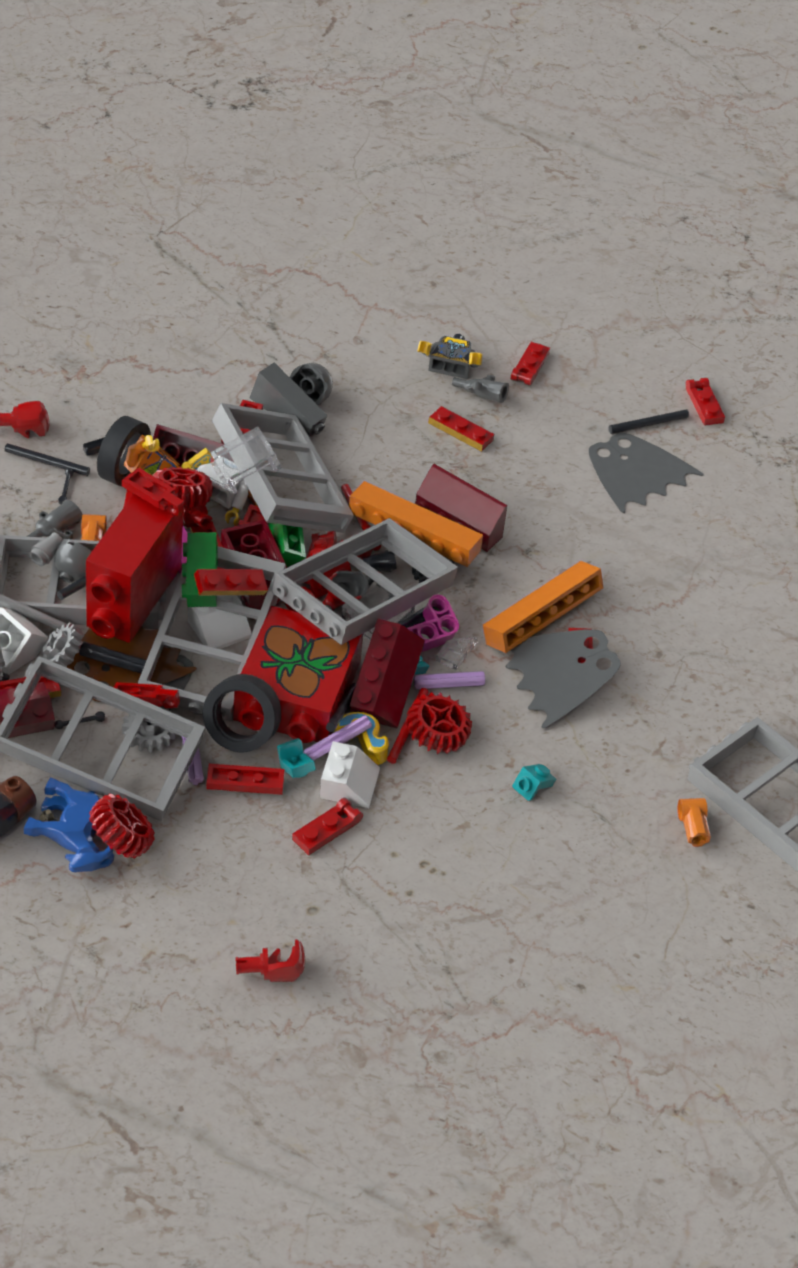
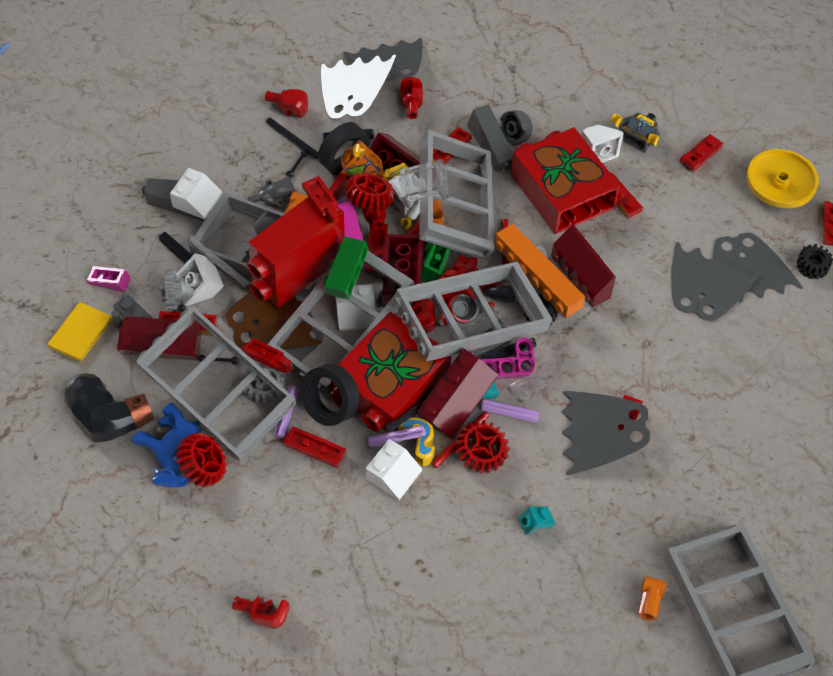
camera: 25 degrees right, 10 degrees up
(45, 550) = (250, 214): light grey cone -> none
(63, 644) = (227, 297): light grey gear -> none
(102, 375) = (359, 80): none -> piece
(112, 657) = (261, 315): black axle -> none
(115, 348) = (407, 57): none -> dark grey piece
(171, 378) = (411, 95): none -> red piece
(230, 582) = (361, 285): red plate -> none
(294, 760) = (358, 442): teal bracket -> none
(327, 826) = (358, 506): red plate -> none
(395, 424) = (564, 179): none -> red brick
(417, 379) = (603, 141): none -> white slope
(484, 388) = (654, 165): dark grey piece -> none
(543, 606) = (612, 370): orange brick -> none
(585, 490) = (719, 283): none -> dark grey piece
(632, 367) = (782, 178): none -> yellow dish
(648, 421) = (777, 229): black bar -> none
(706, 452) = (814, 253): none -> black tyre

